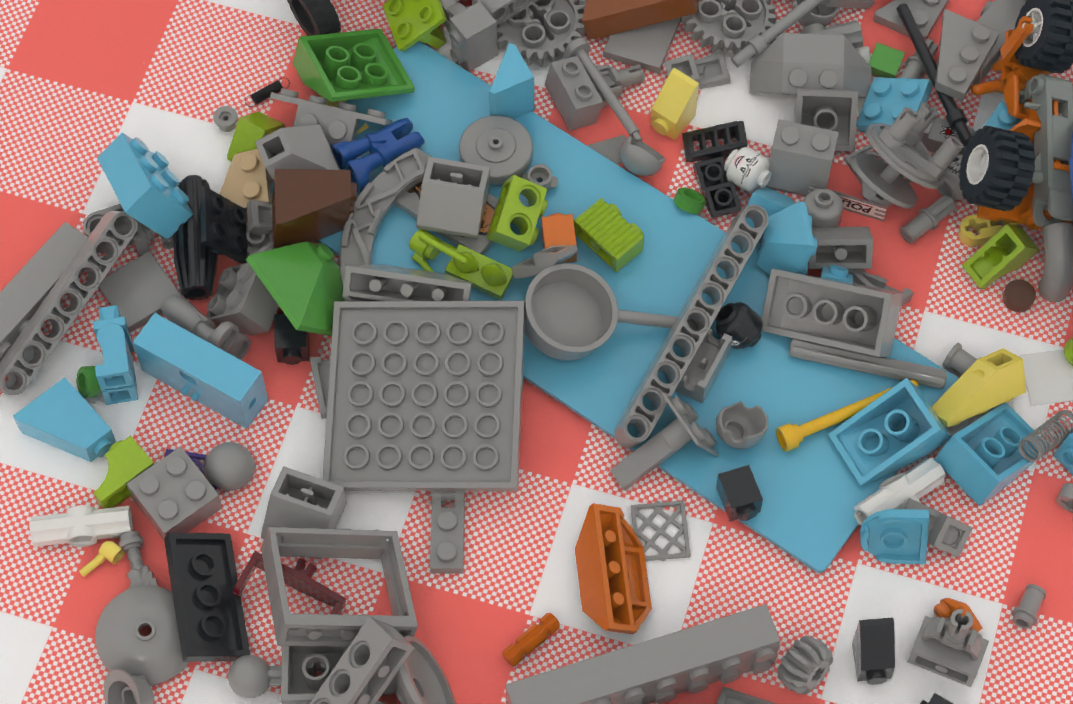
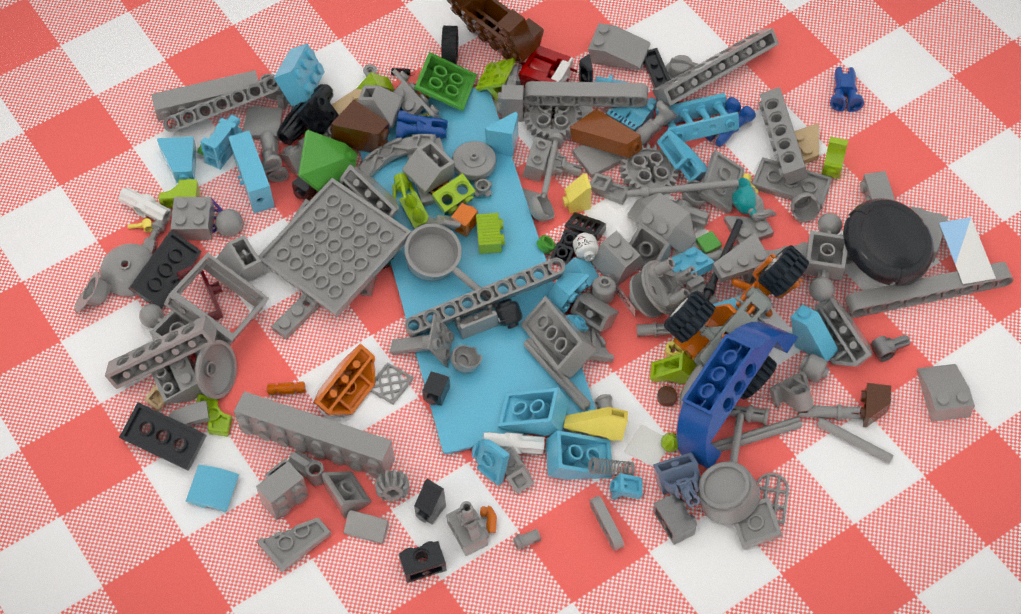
camera: 40 degrees right, 5 degrees down
(791, 435) = (488, 381): yellow piece -> none

